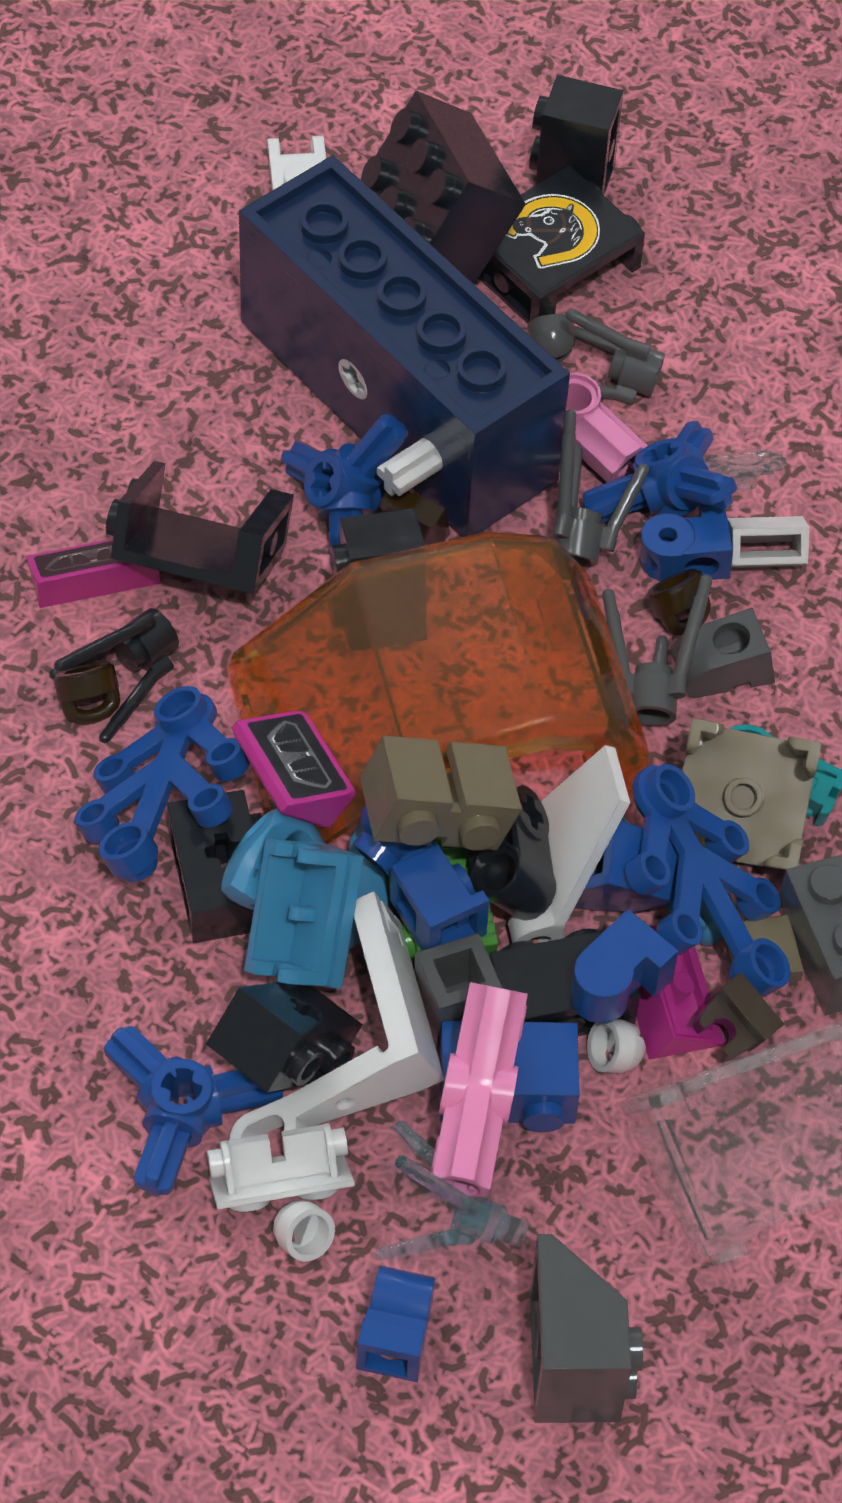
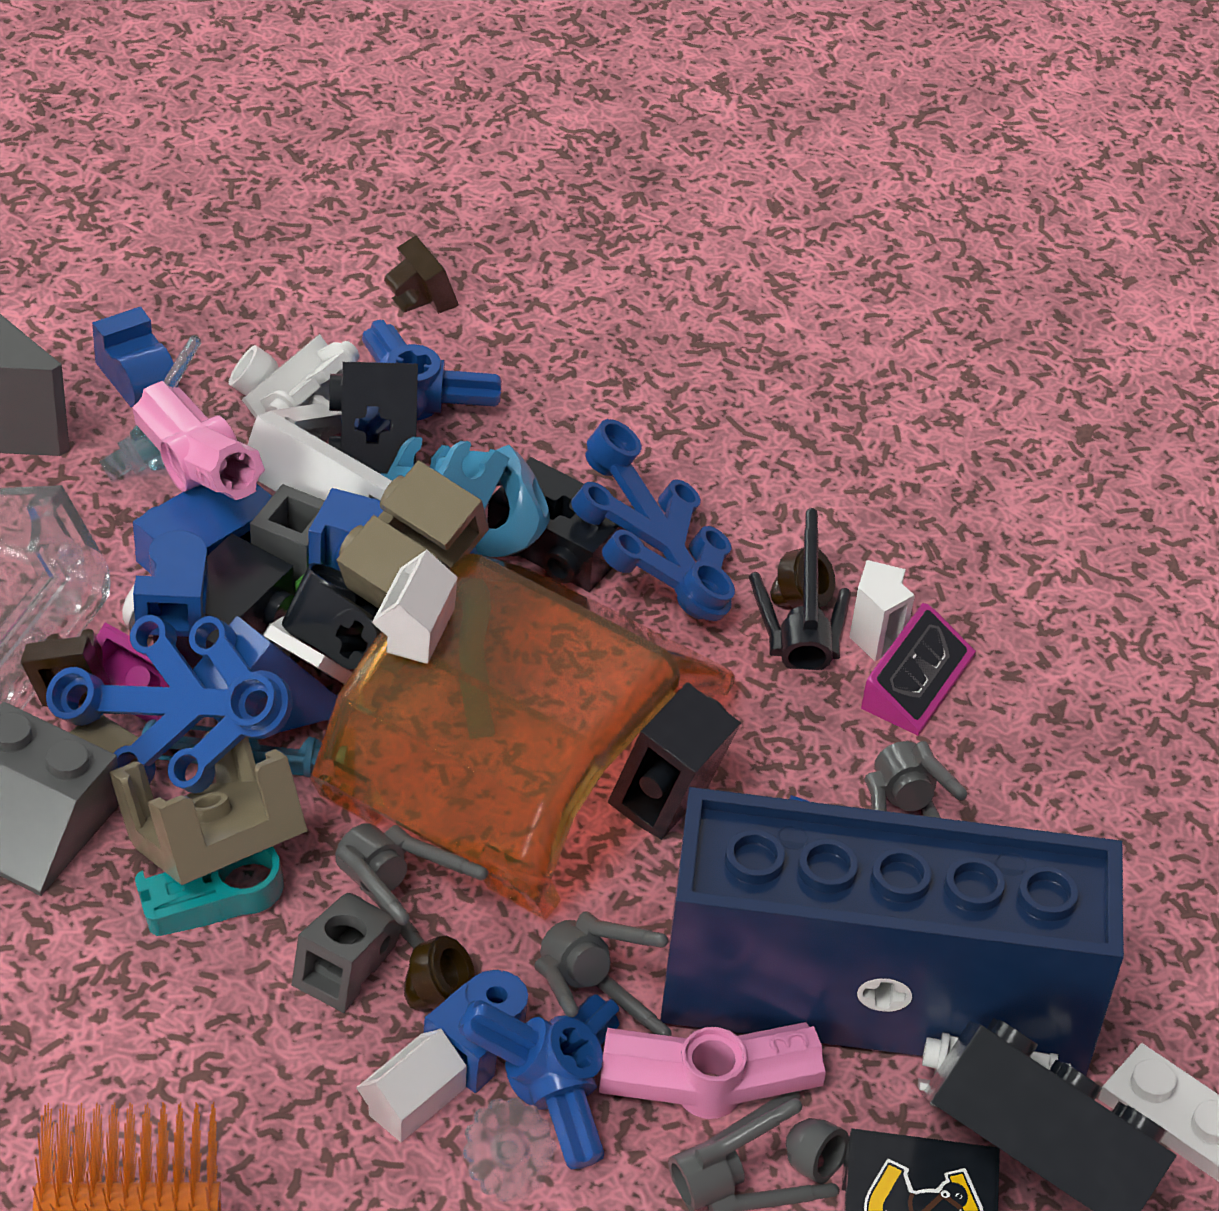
camera: 135 degrees right, 10 degrees down
(48, 1218) = (420, 279): none -> dark brown tile
(73, 606) = (880, 608): none -> white piece
(196, 545) = (857, 704): black panel -> none
(216, 481) = (908, 778): none -> dark grey plant
(295, 766) = (566, 554): slope -> none
(515, 676) = (417, 607): none -> white piece

